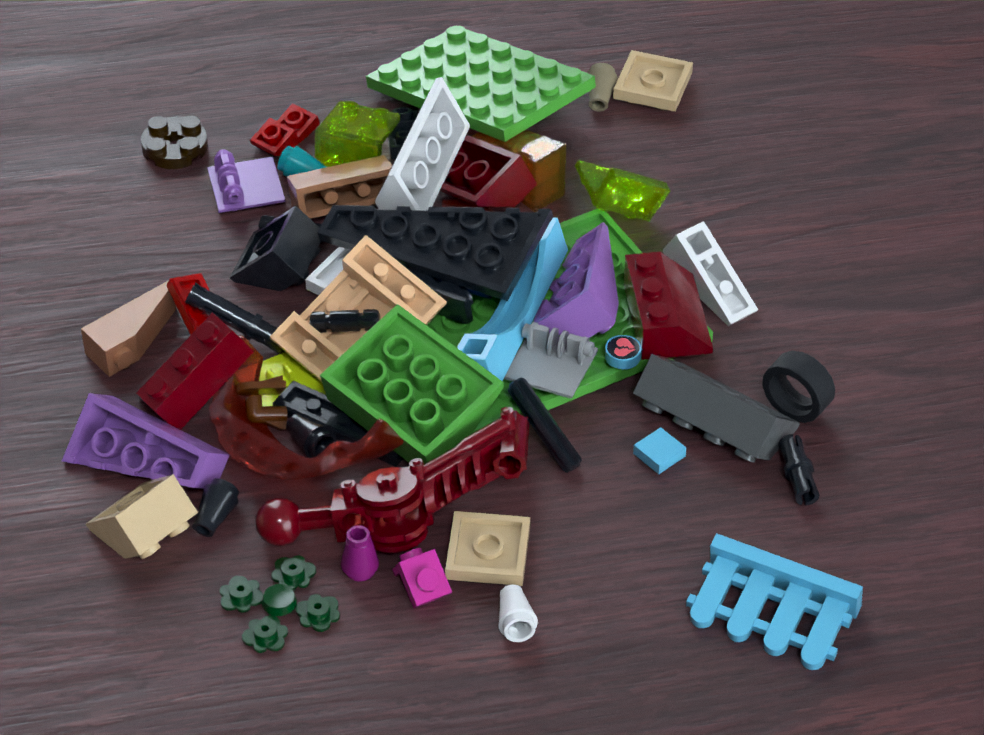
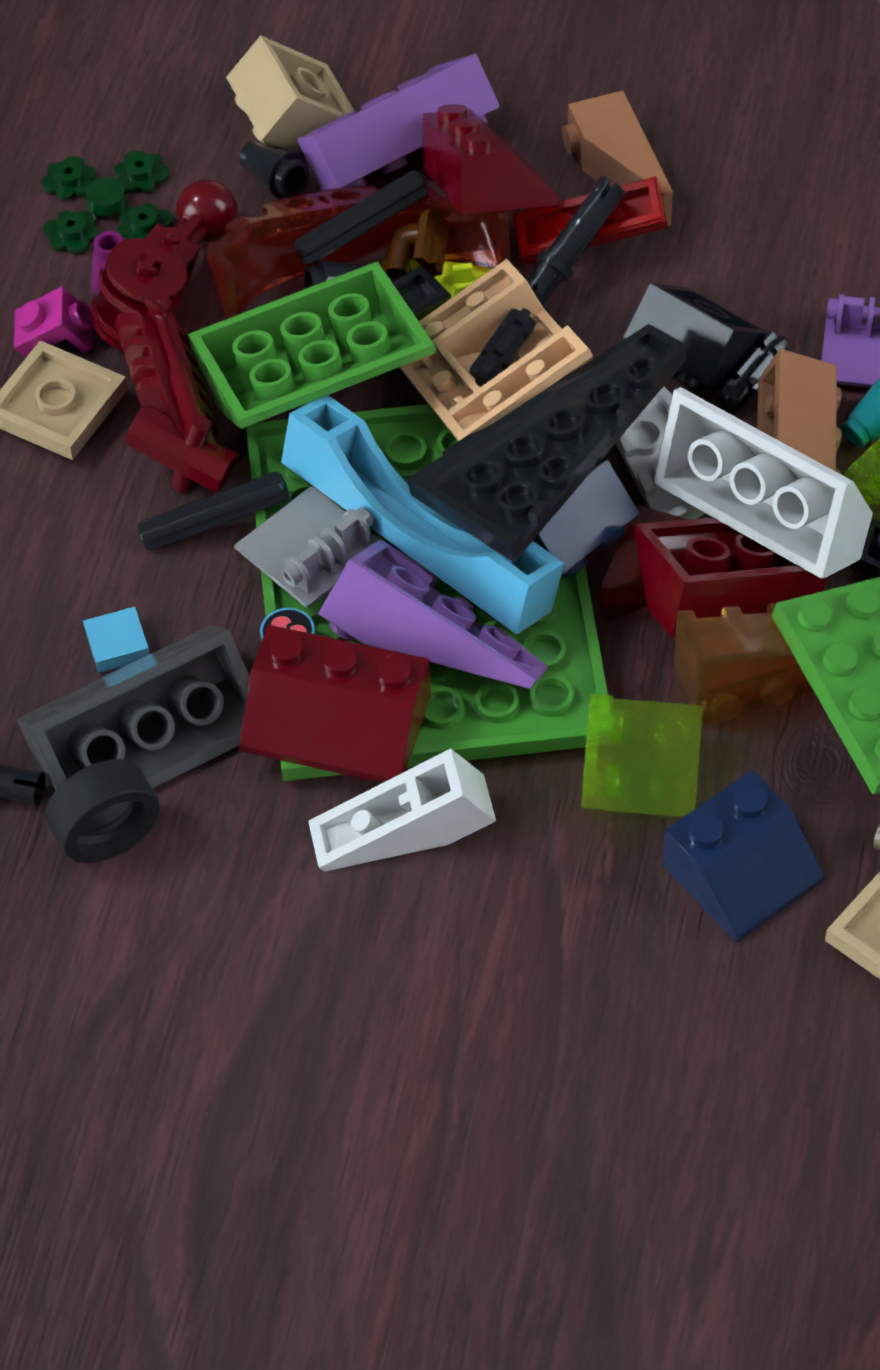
camera: 115 degrees right, 10 degrees up
(262, 420) = (361, 218): none -> black axle
(645, 148) = (742, 856): none -> dark blue slope

